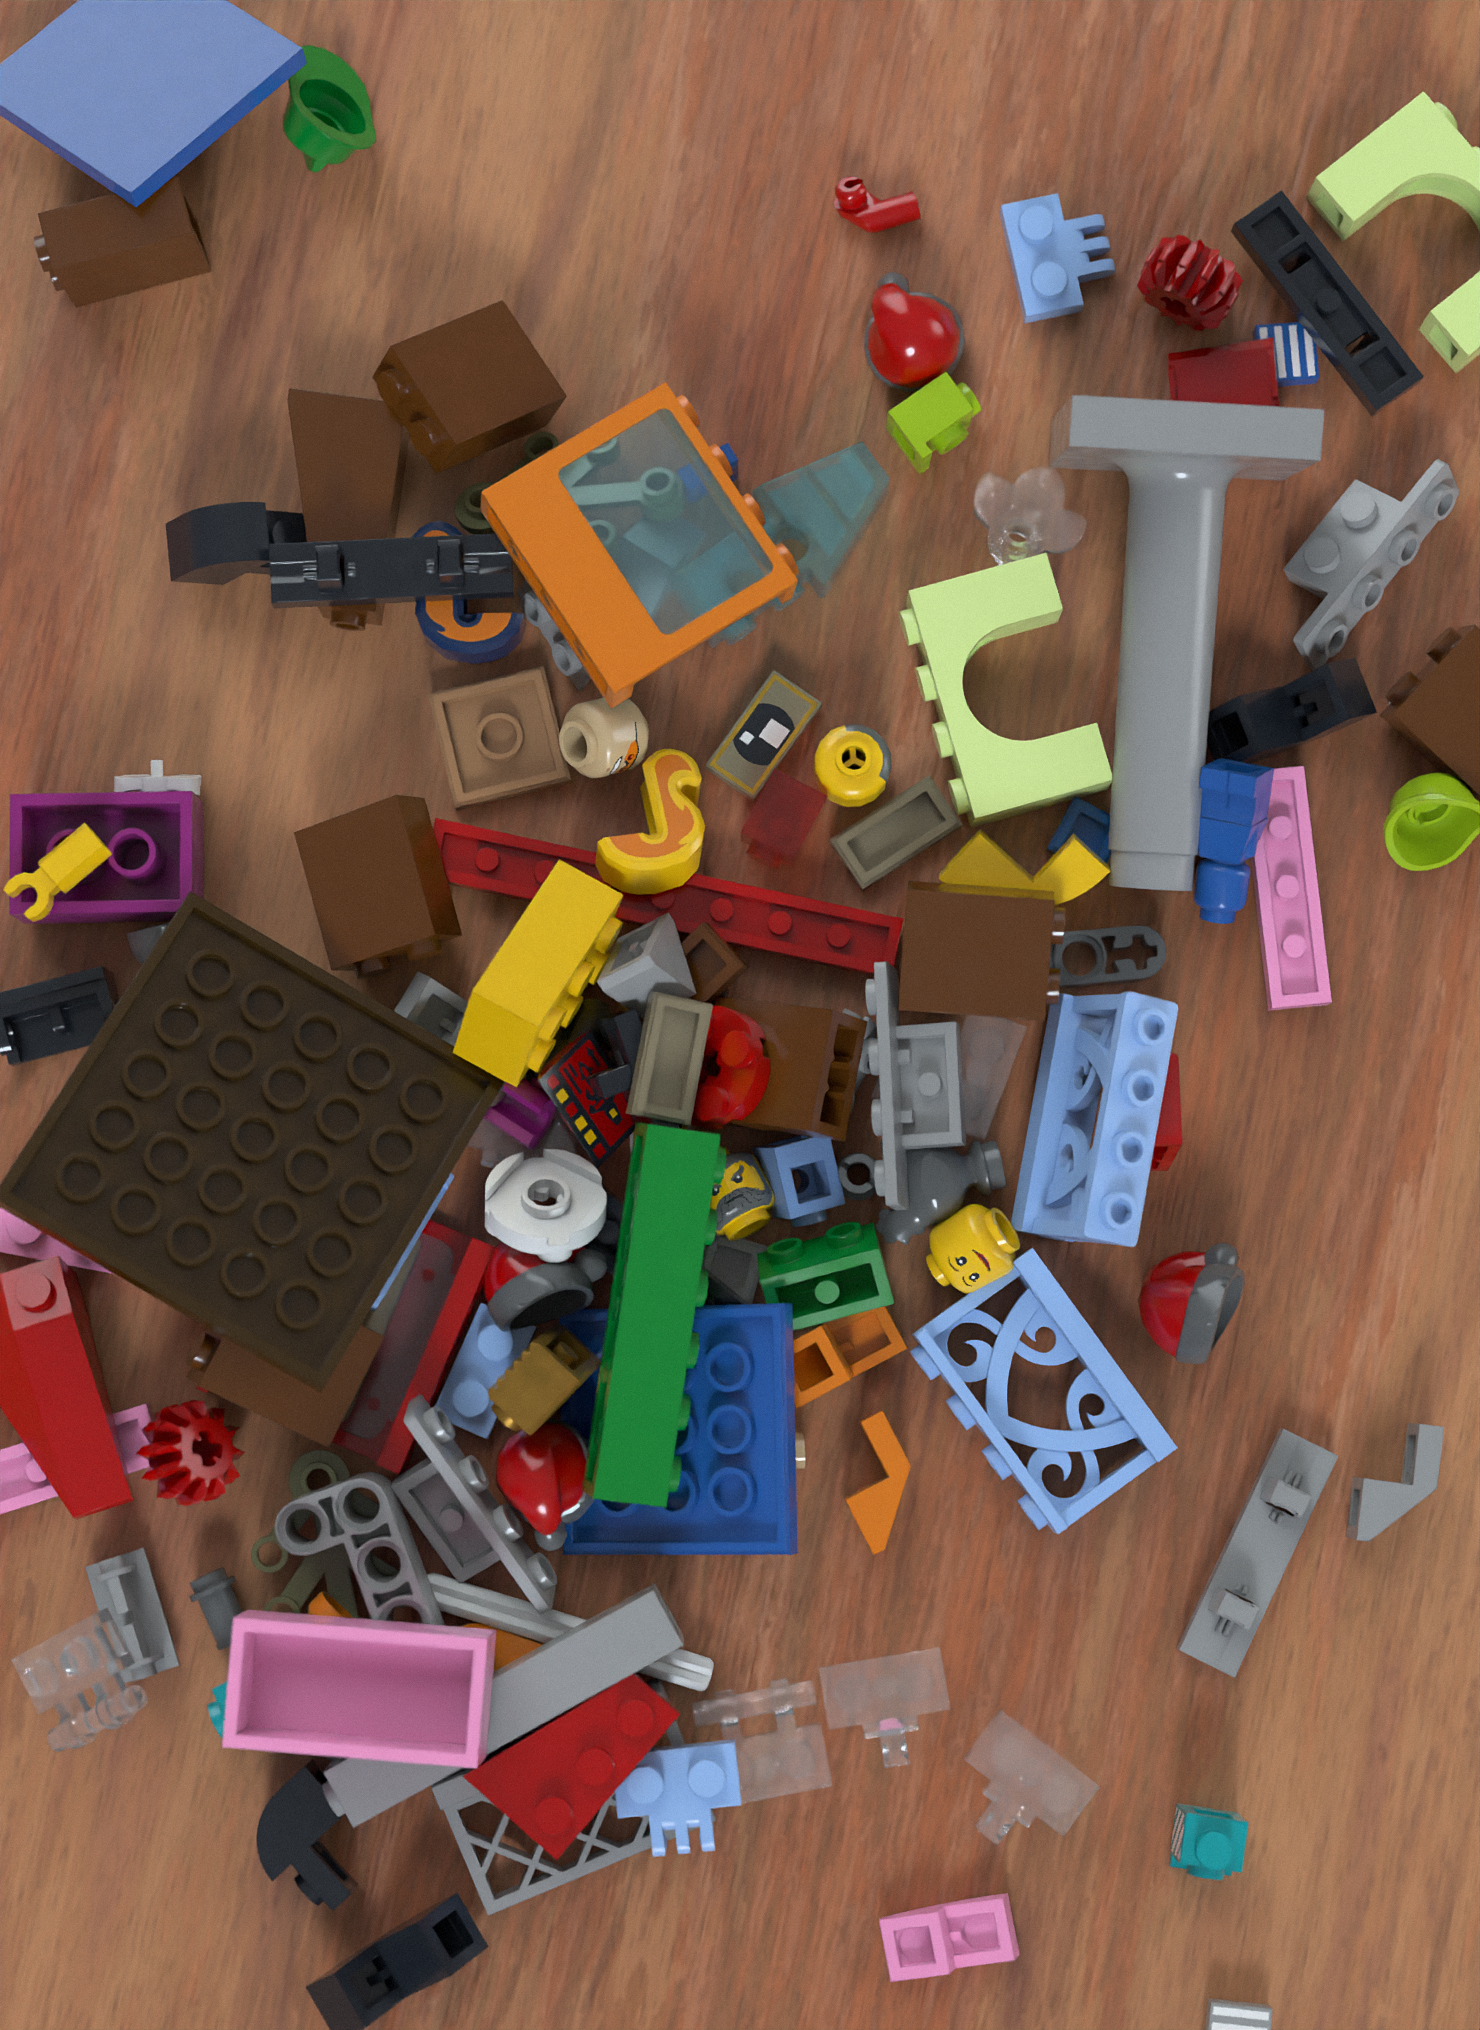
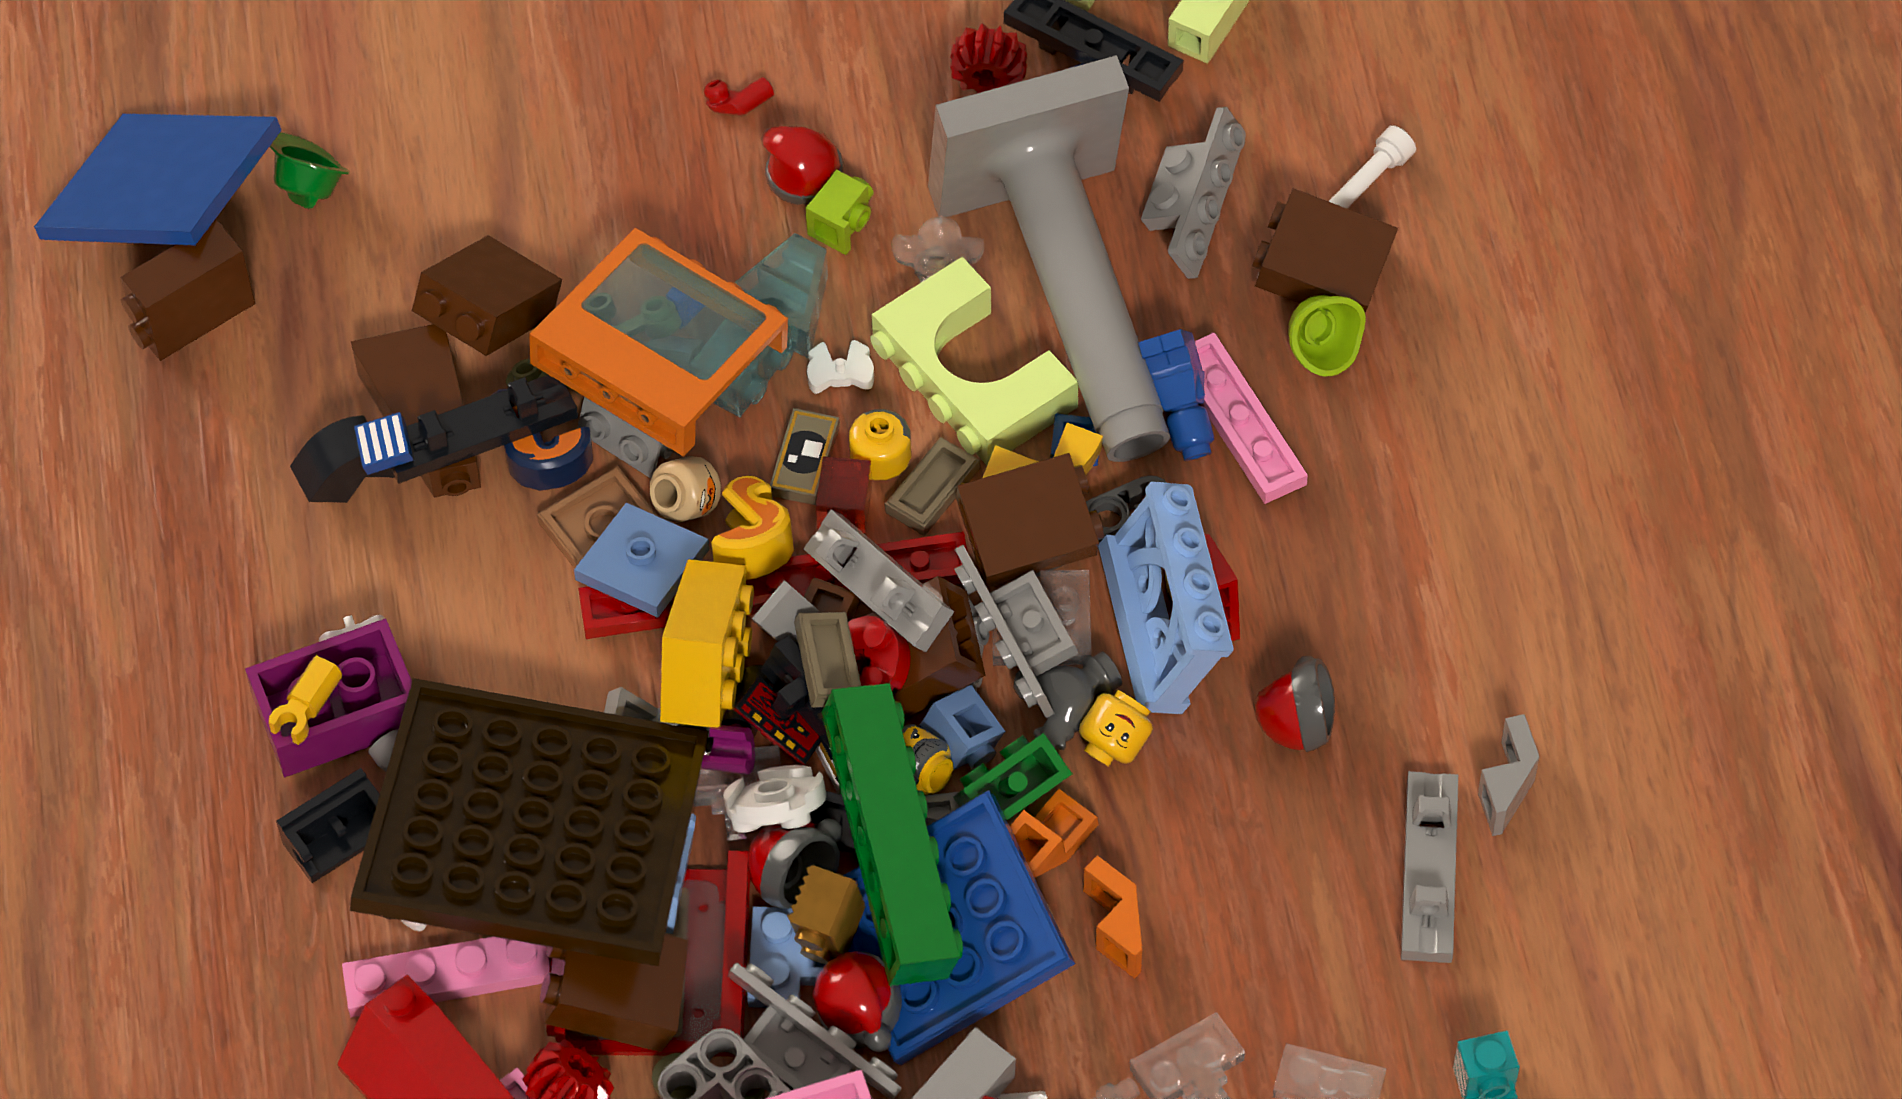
camera: 20 degrees left, 25 degrees down
(267, 561) = (383, 443): none -> blue tile
(378, 885) = (553, 640): reddish brown brick -> none
(519, 813) = (640, 559): none -> medium blue plate
(768, 973) = (878, 581): none -> light grey hinge
(850, 1190) = (1008, 710): dark grey pin -> none
(866, 642) = (824, 372): none -> white piece
(1052, 255) = (882, 86): light blue hinge -> none
(1123, 1414) = (1192, 747): light blue fence -> none
(1290, 715) = (1198, 301): black brick -> none

